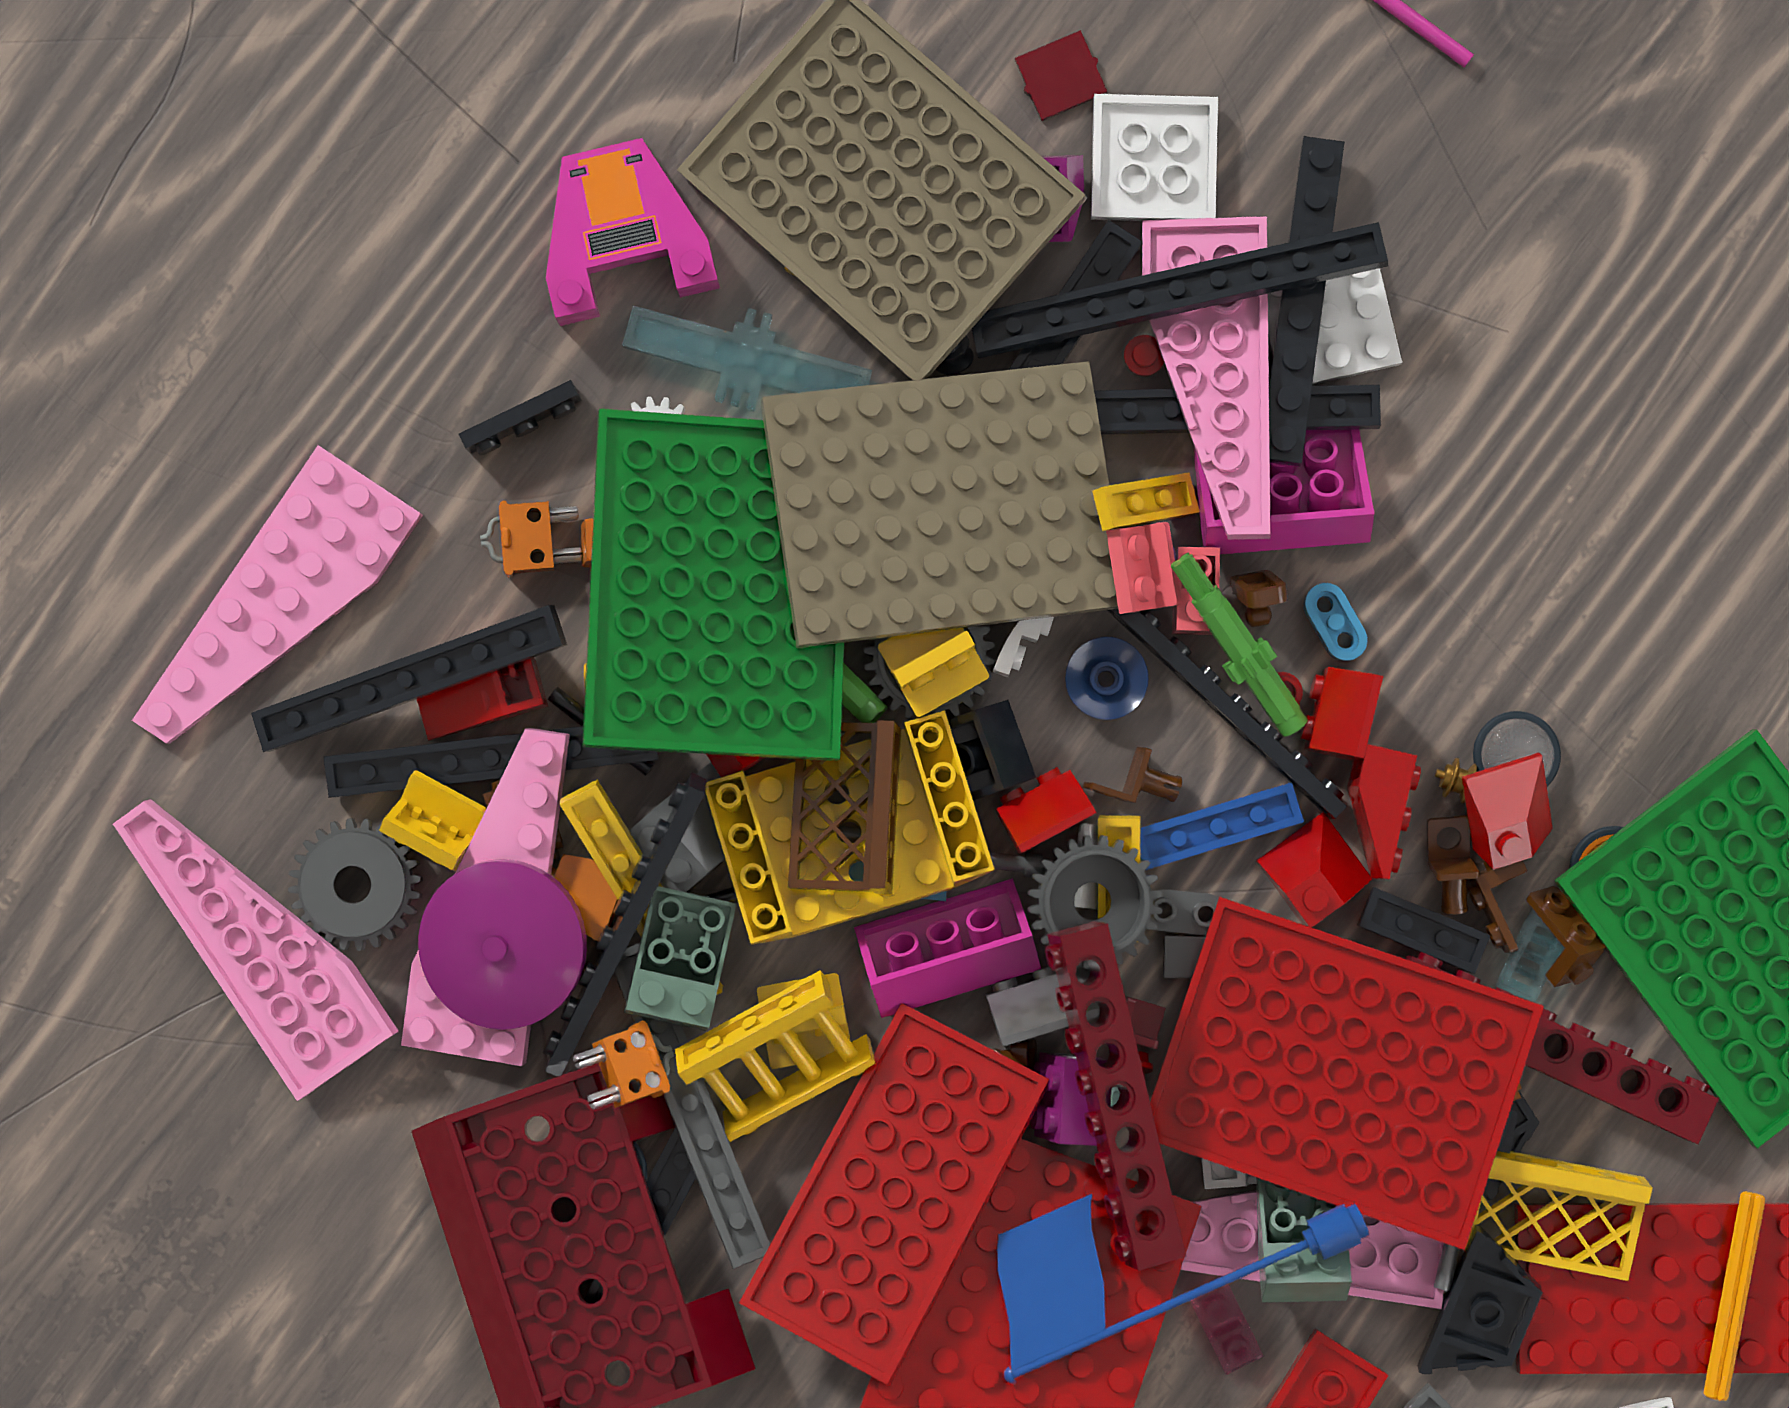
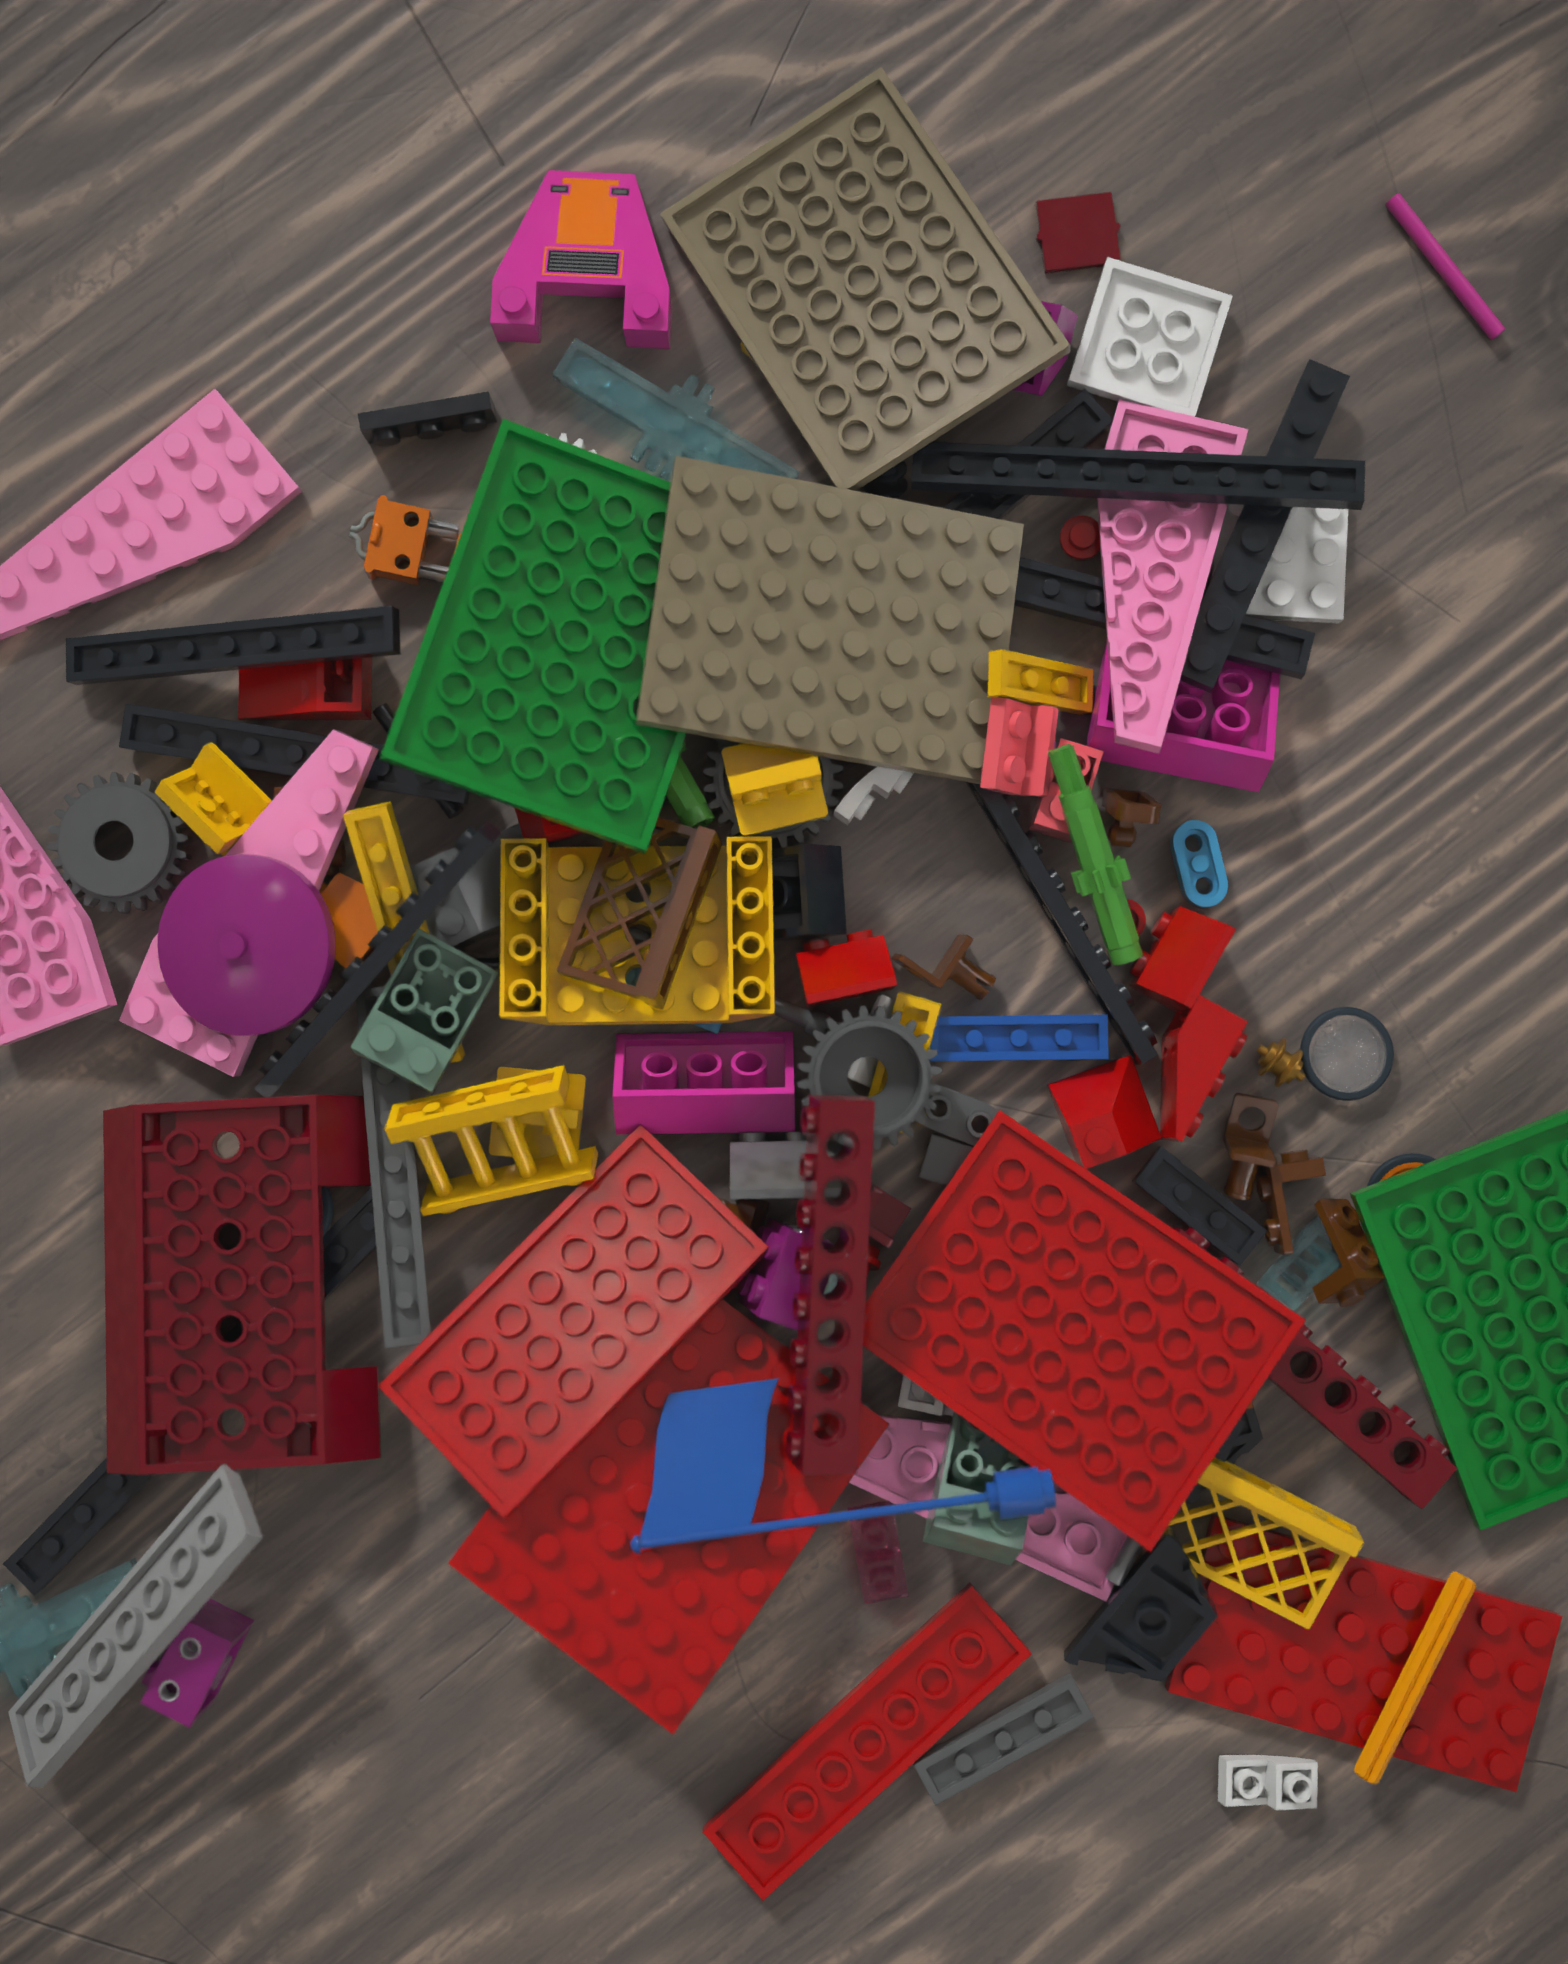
camera: 15 degrees right, 0 degrees up
(632, 1065) = (345, 1107): orange piece -> none
(1114, 657) = (953, 831): dark blue dish -> none
(1508, 810) = (1322, 1107): slope -> none

